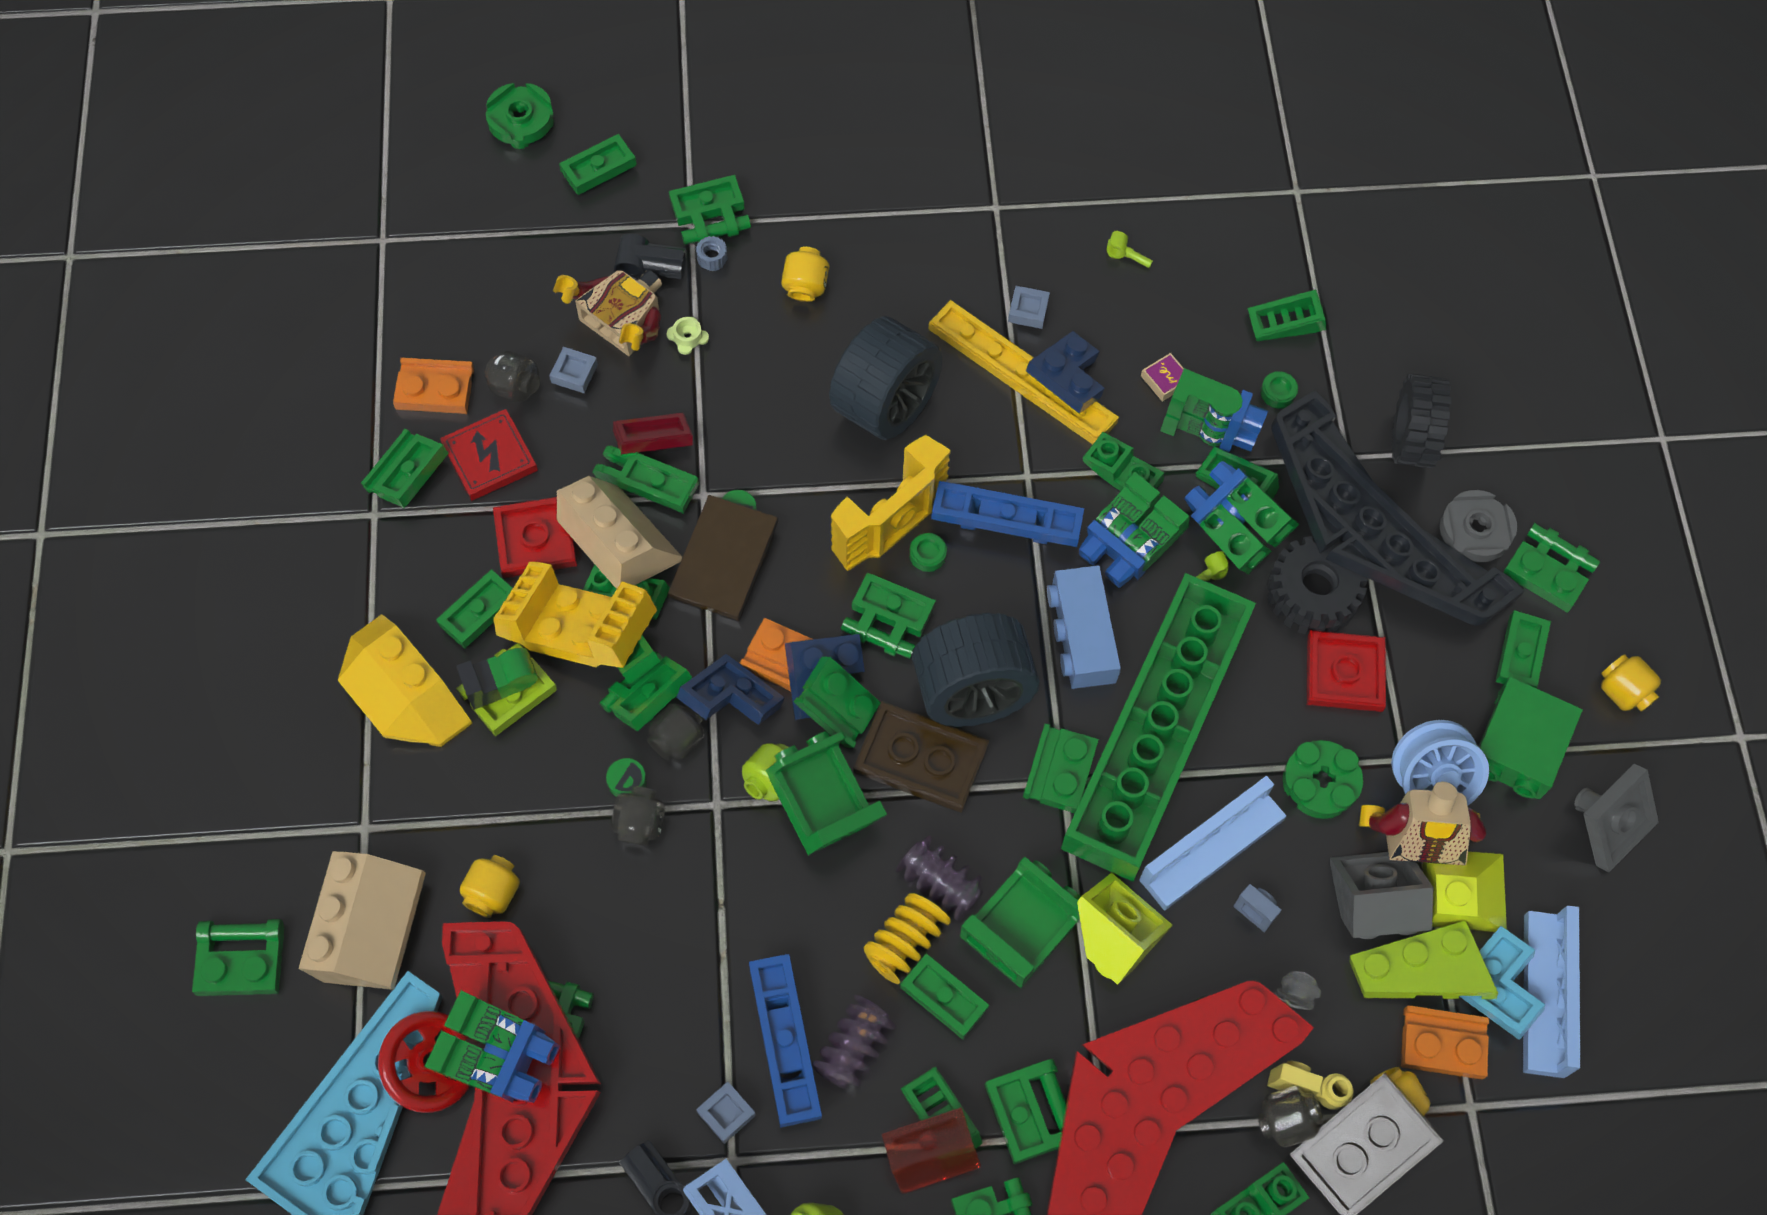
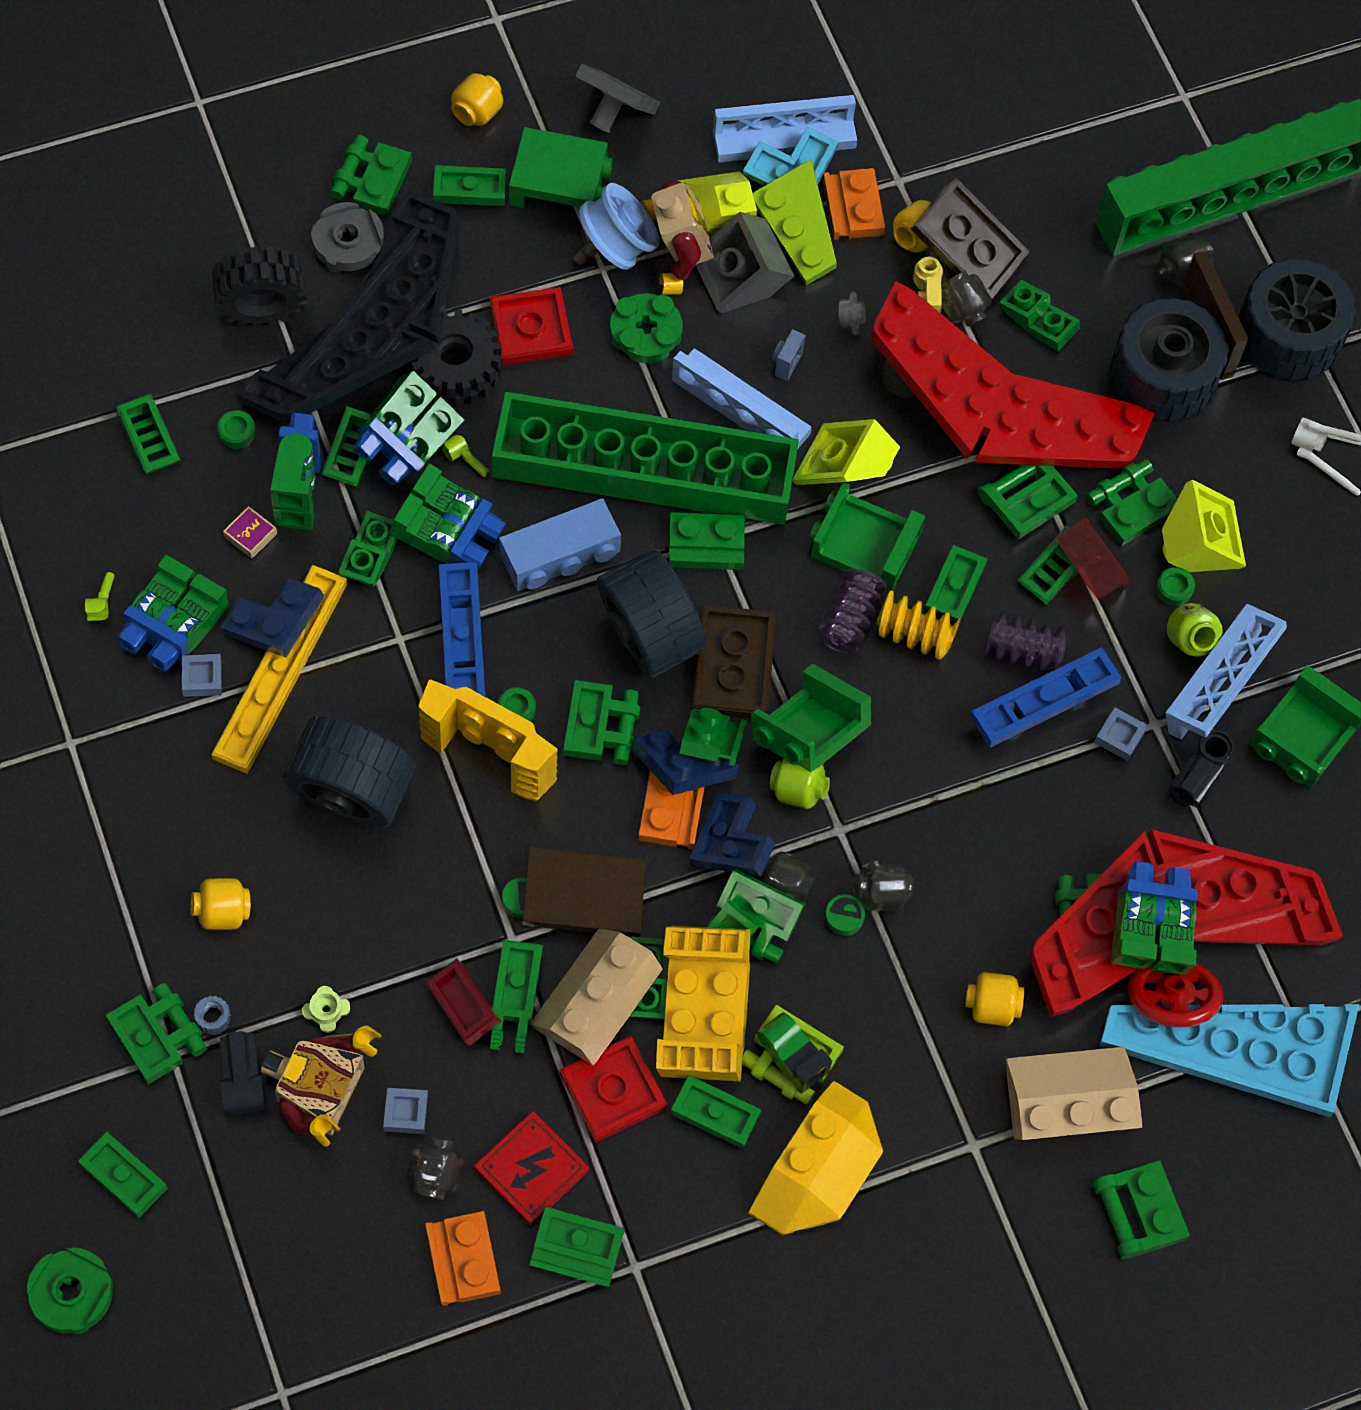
camera: 110 degrees left, 0 degrees up
(1094, 295) = (172, 614): none -> hips

